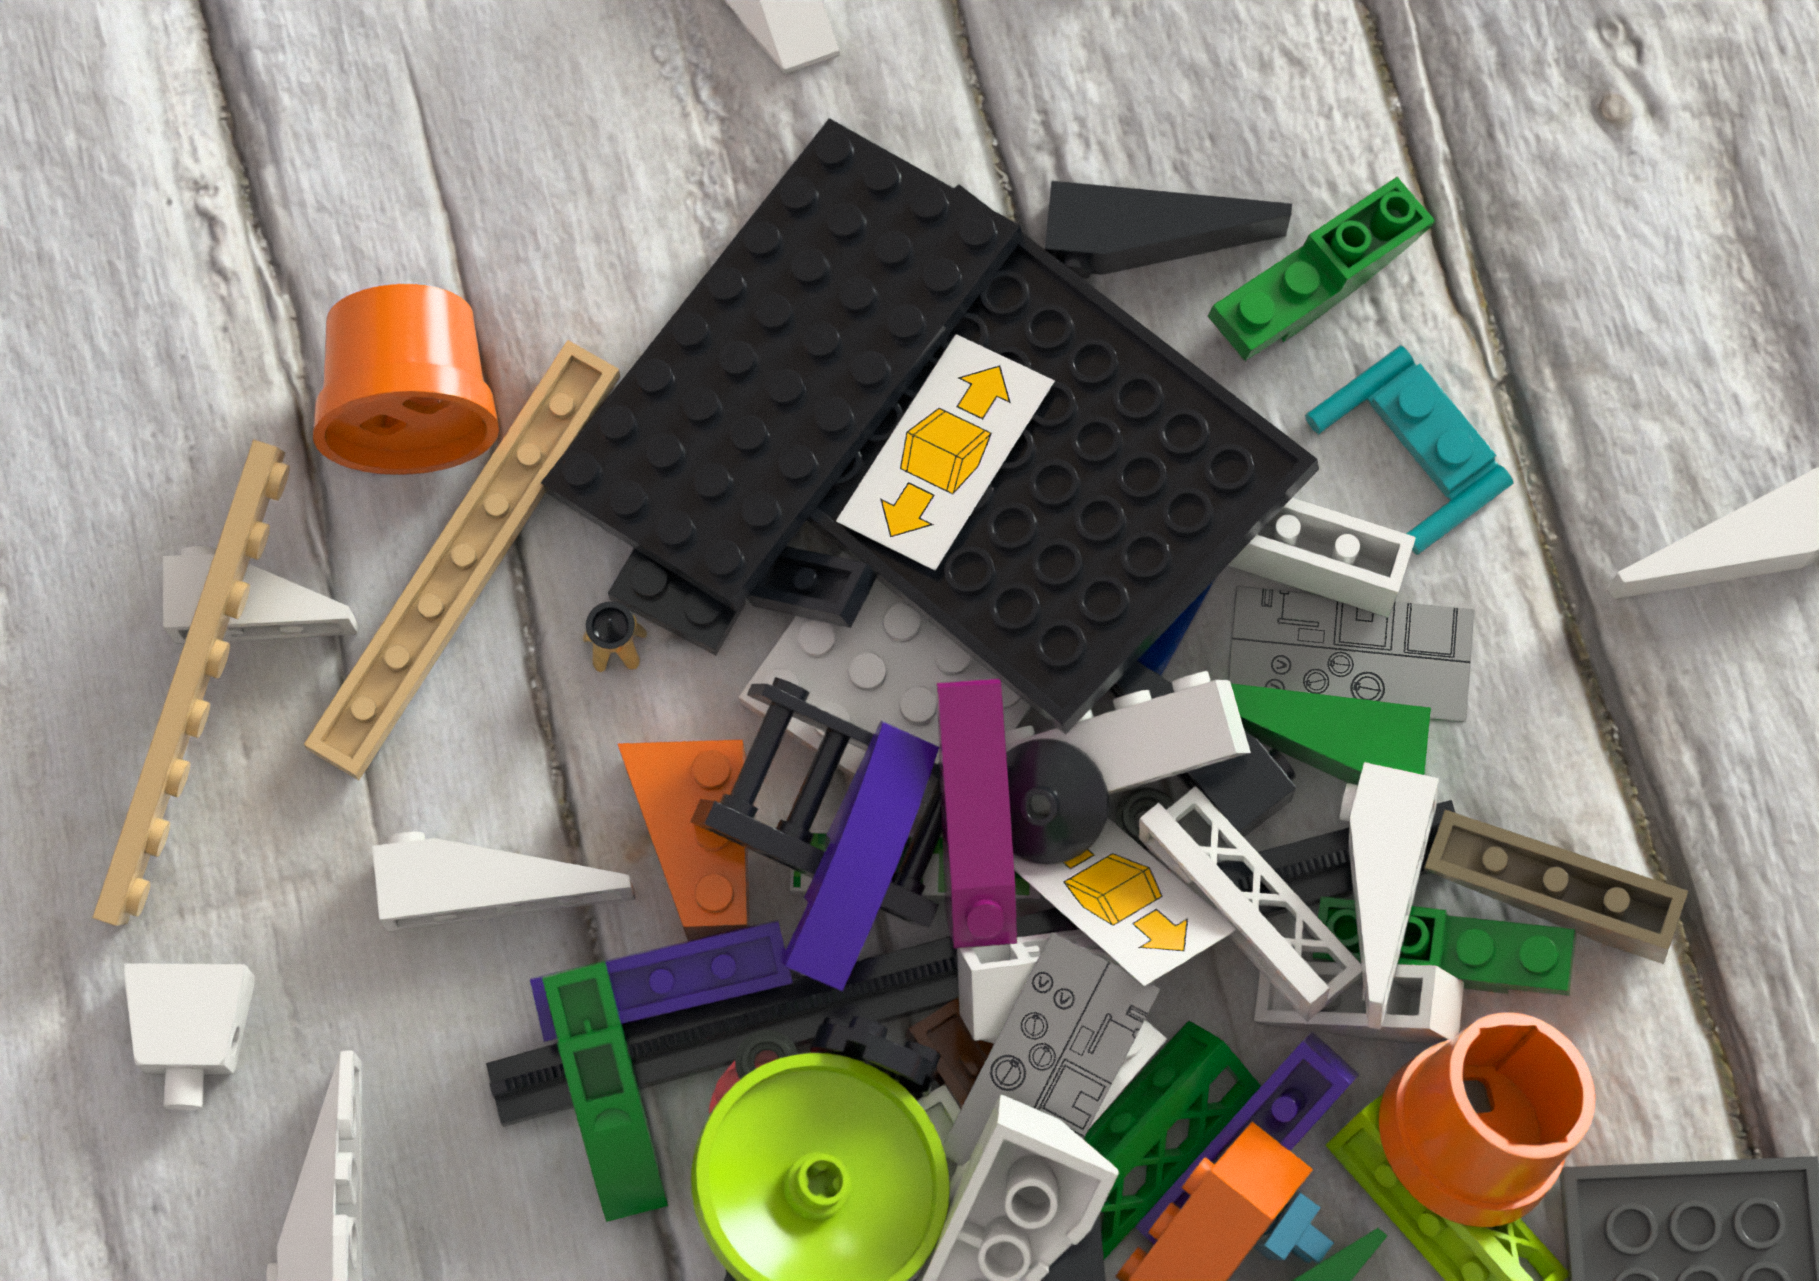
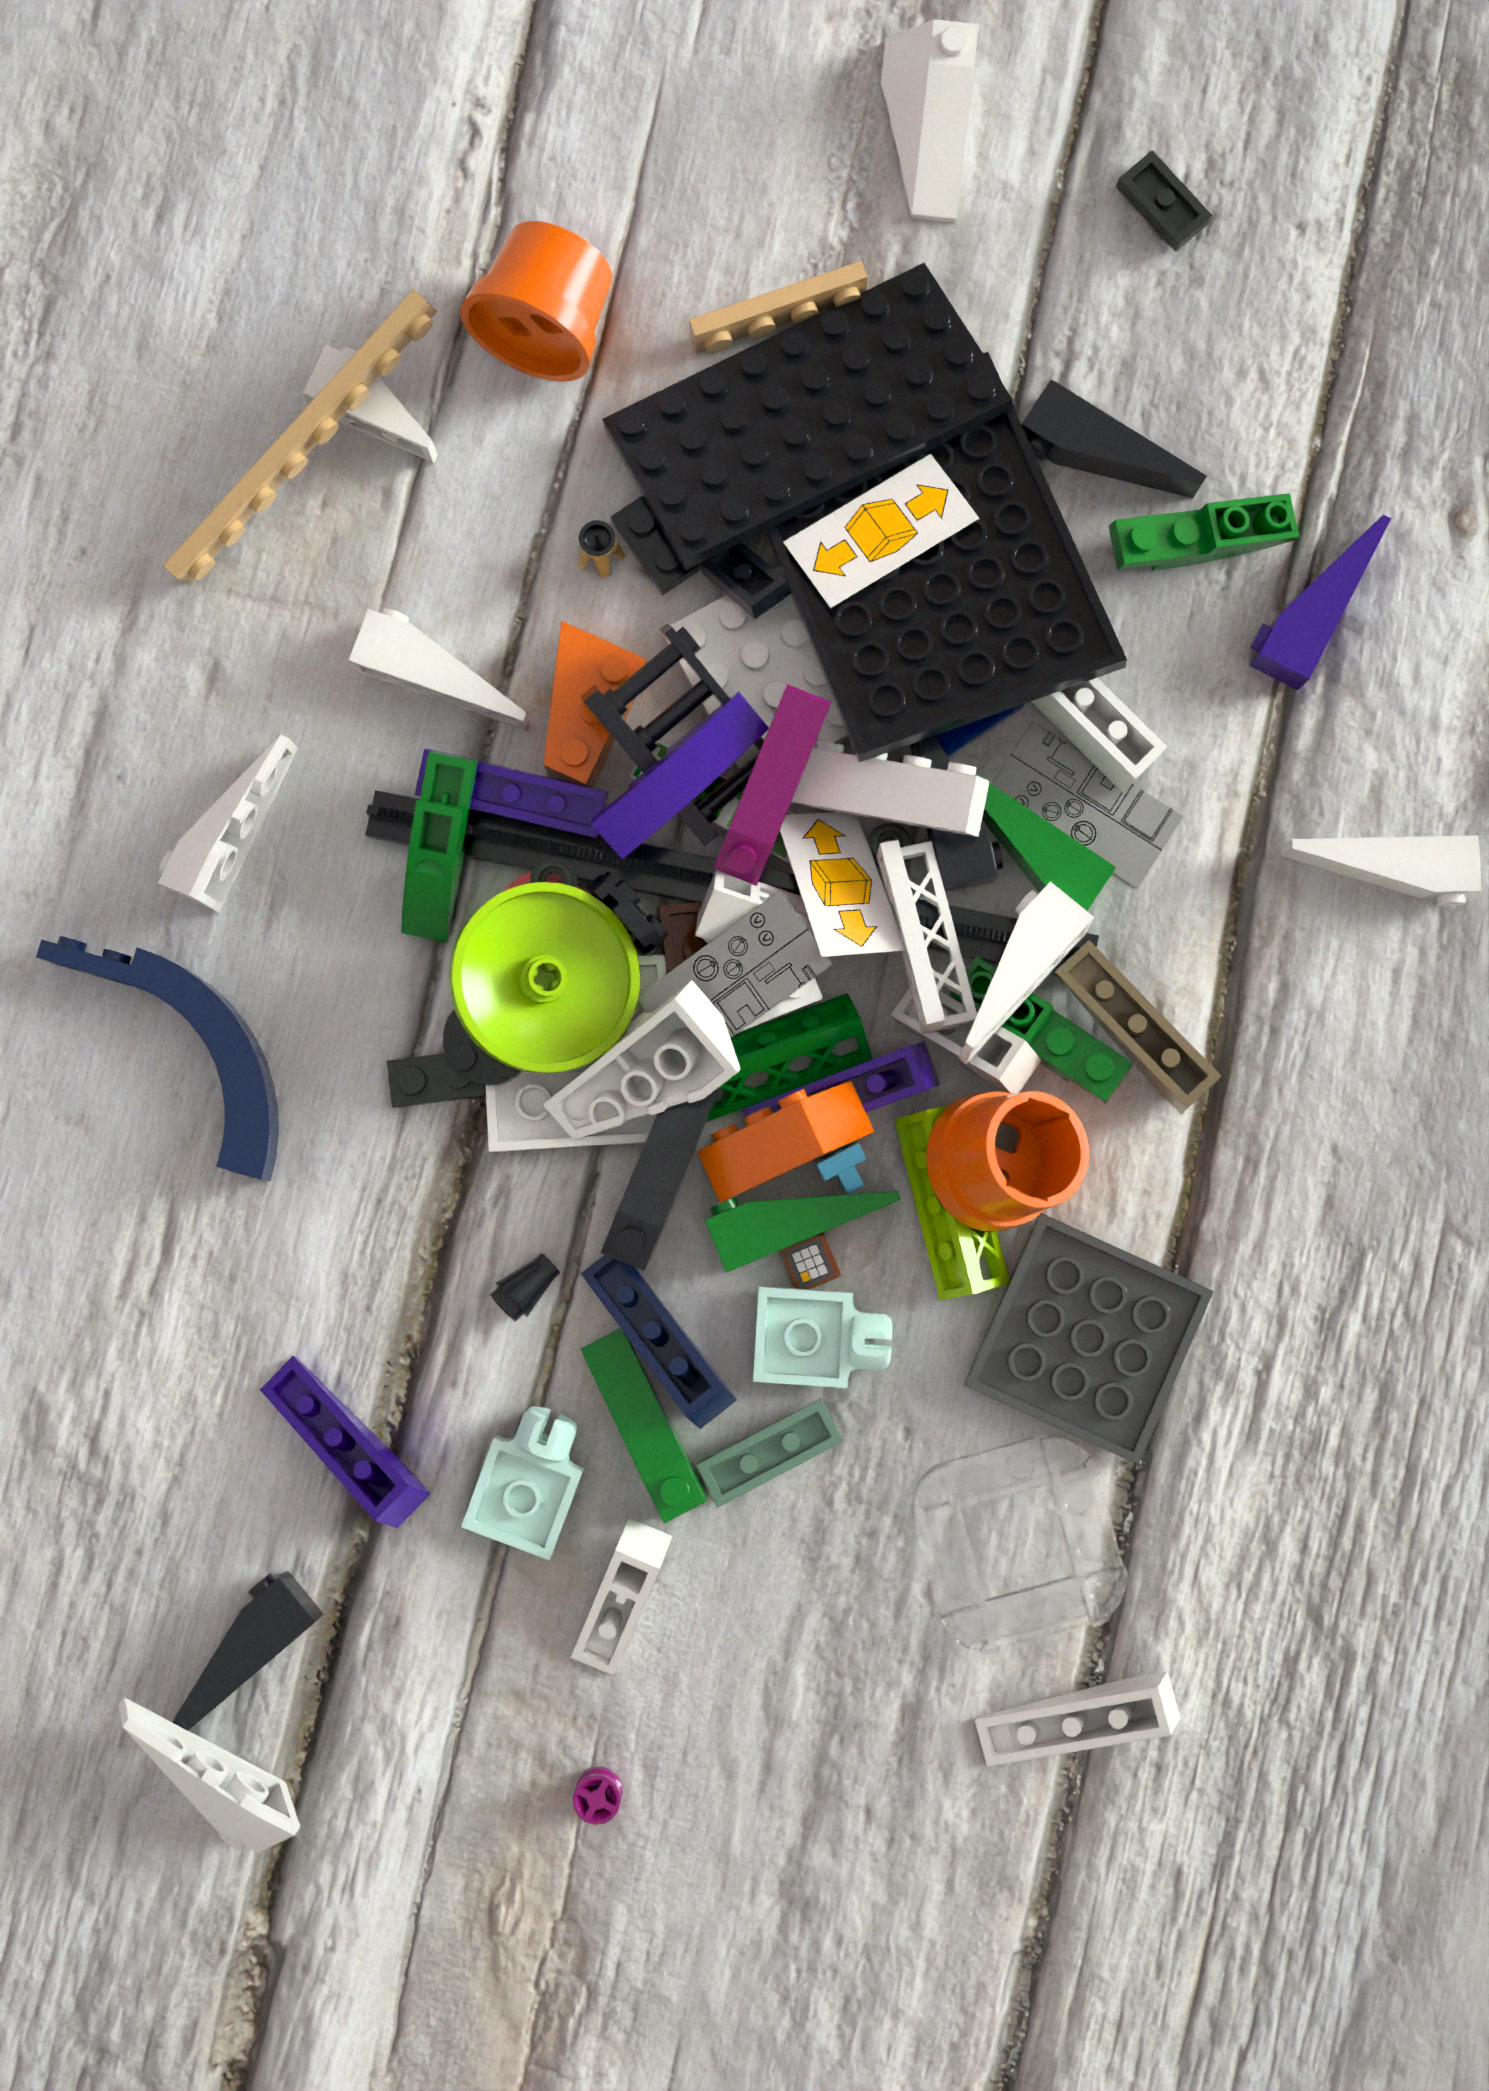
camera: 25 degrees right, 10 degrees up
(187, 1023) = (194, 666): white torso -> none
(460, 562) = (524, 446): tan plate -> none
(670, 267) = (765, 312): none -> tan plate
(1075, 794) = (845, 802): black dish -> none
(1431, 432) = (1218, 680): teal plate -> none
(1497, 329) = (1301, 632): none -> dark purple slope

